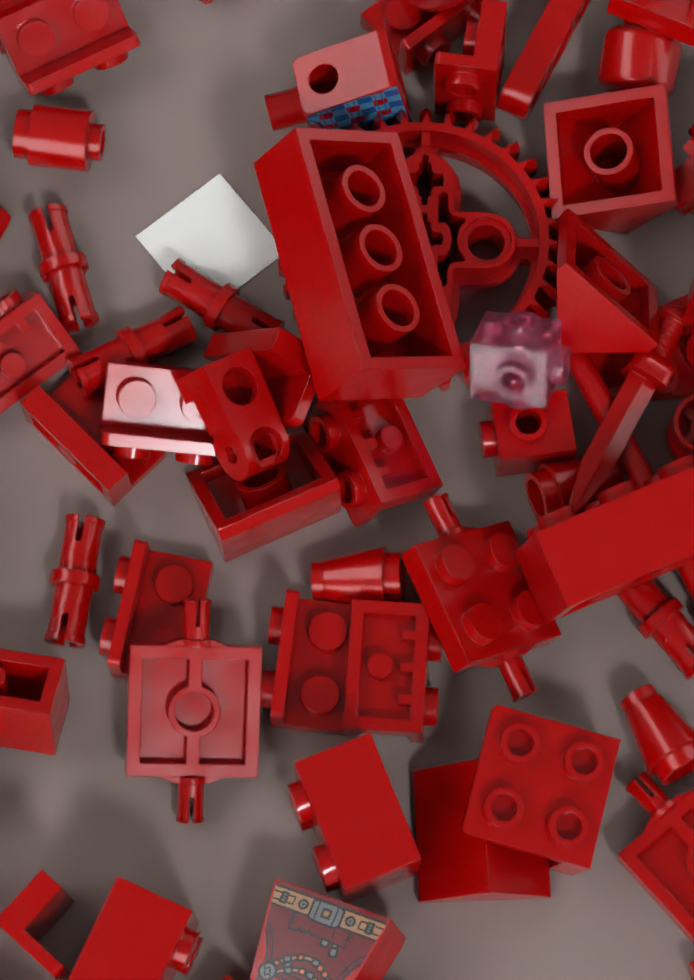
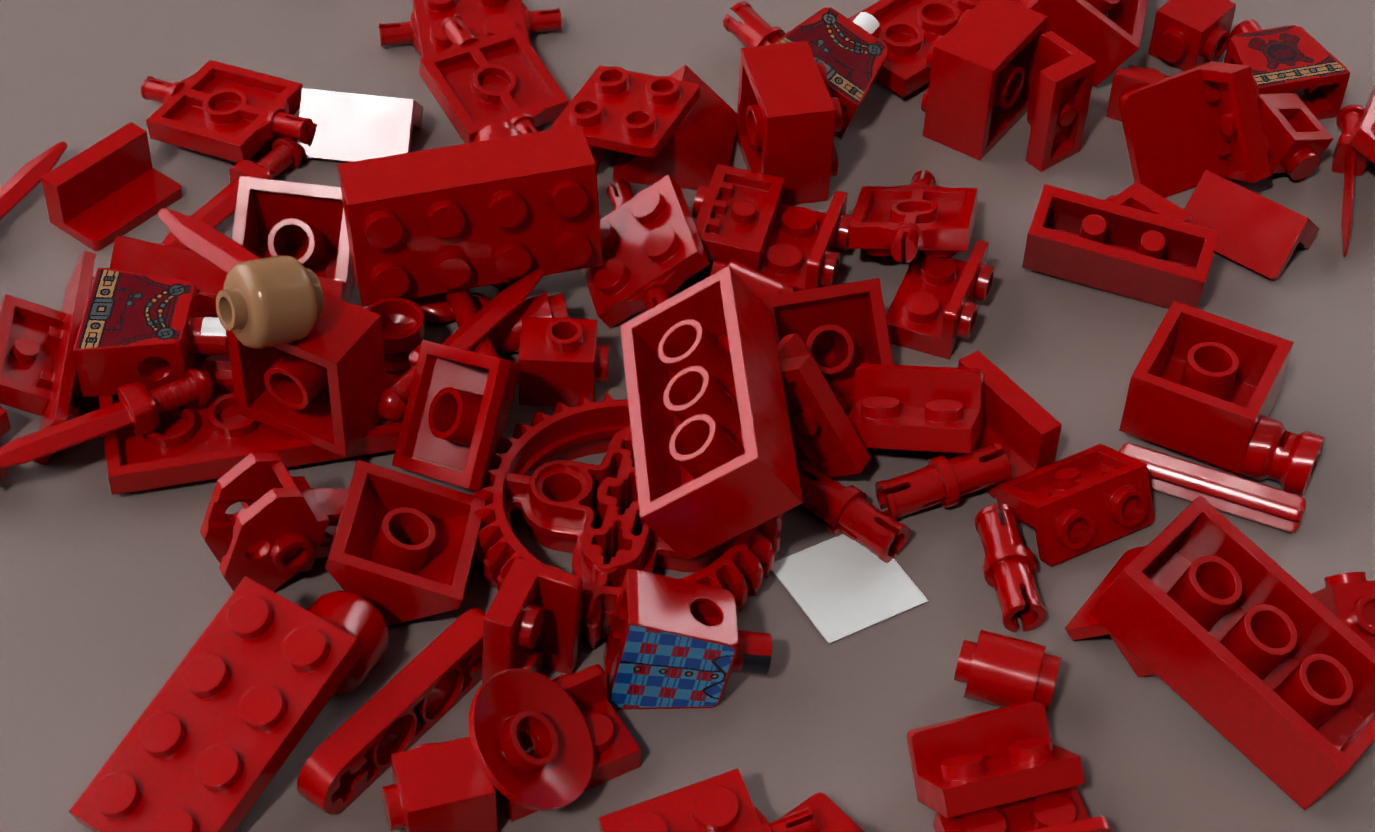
camera: 170 degrees left, 30 degrees down
(74, 581) = (1014, 328): red pin -> none
(238, 414) = (853, 369): red leg -> none
(517, 359) = (581, 361): clear pink brick -> none

